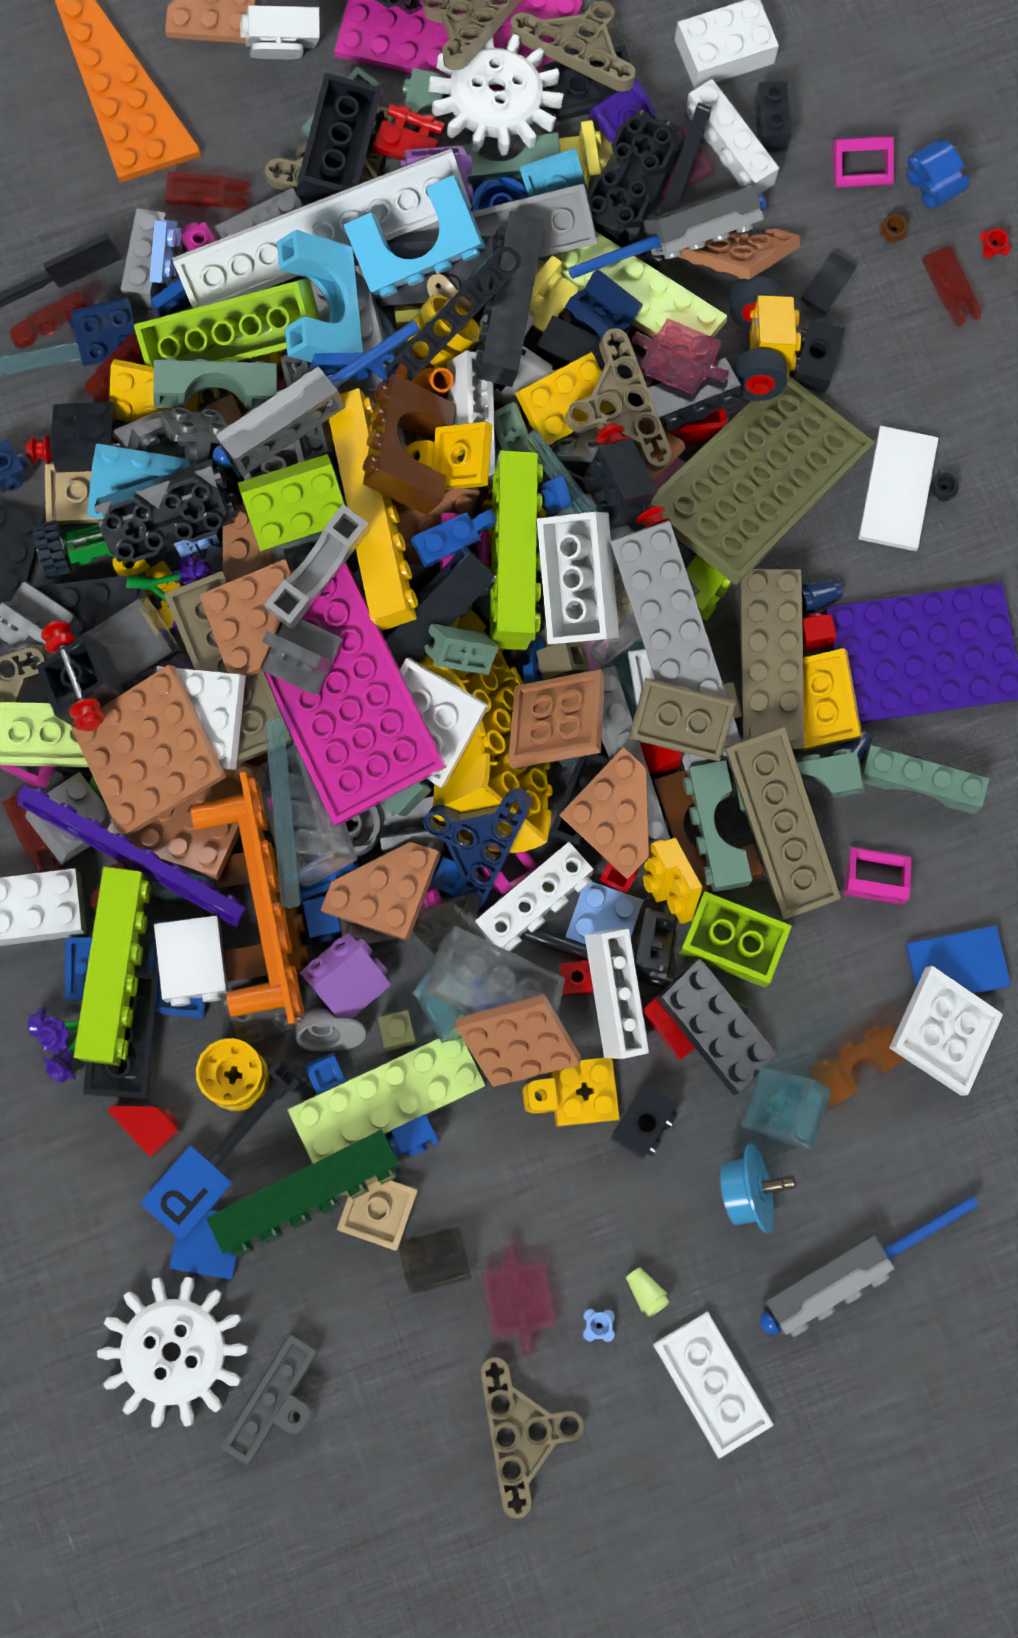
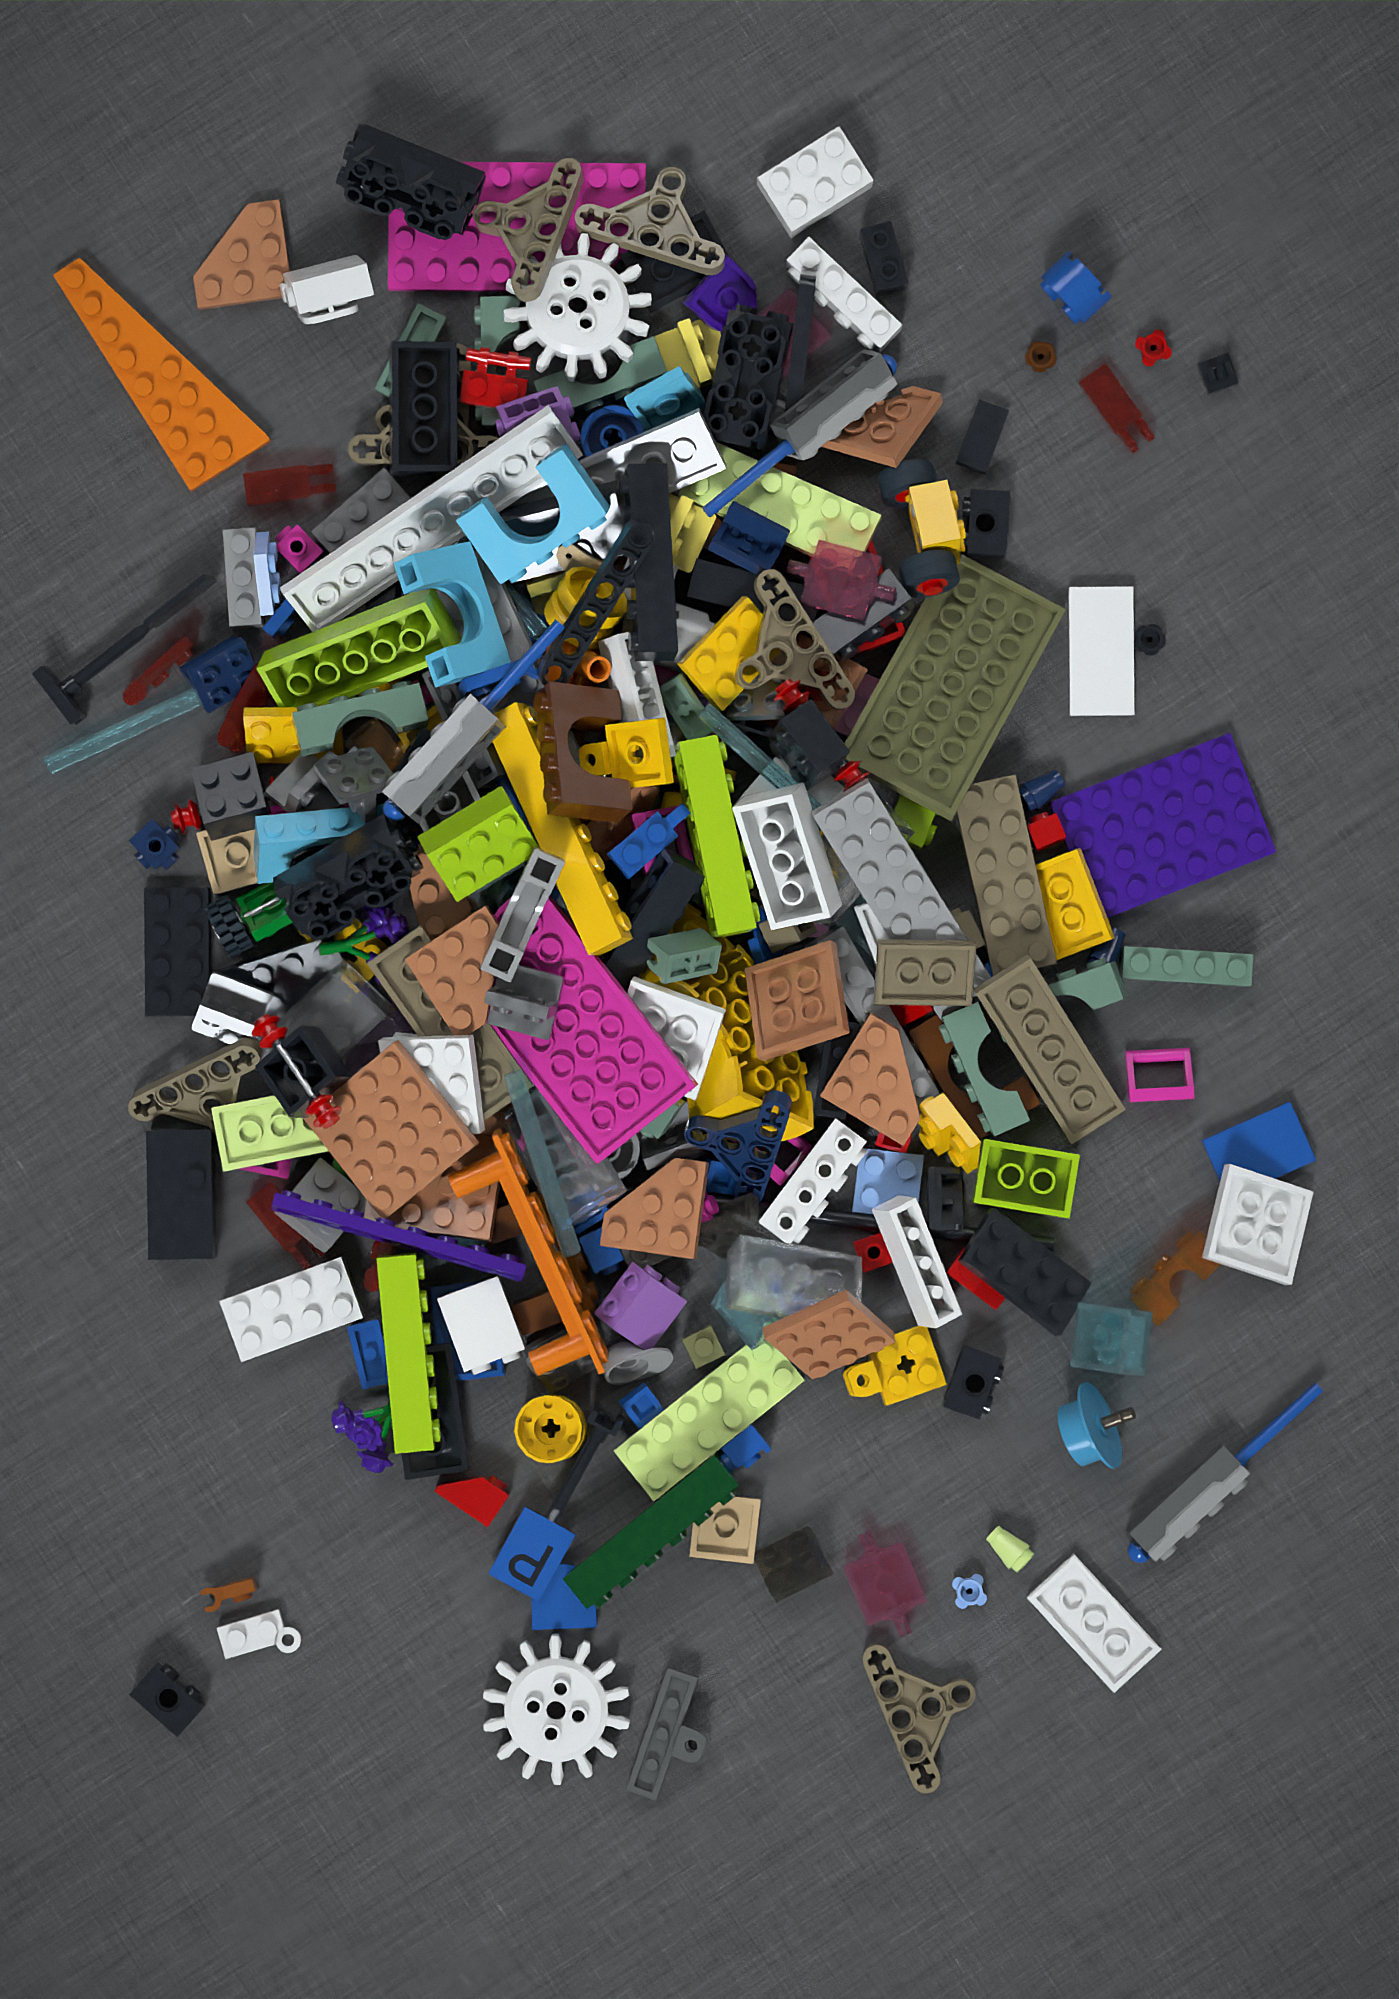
camera: 10 degrees left, 10 degrees up
(555, 495) = (745, 772): blue plate -> none
(883, 143) = (986, 268): dark pink tile -> none

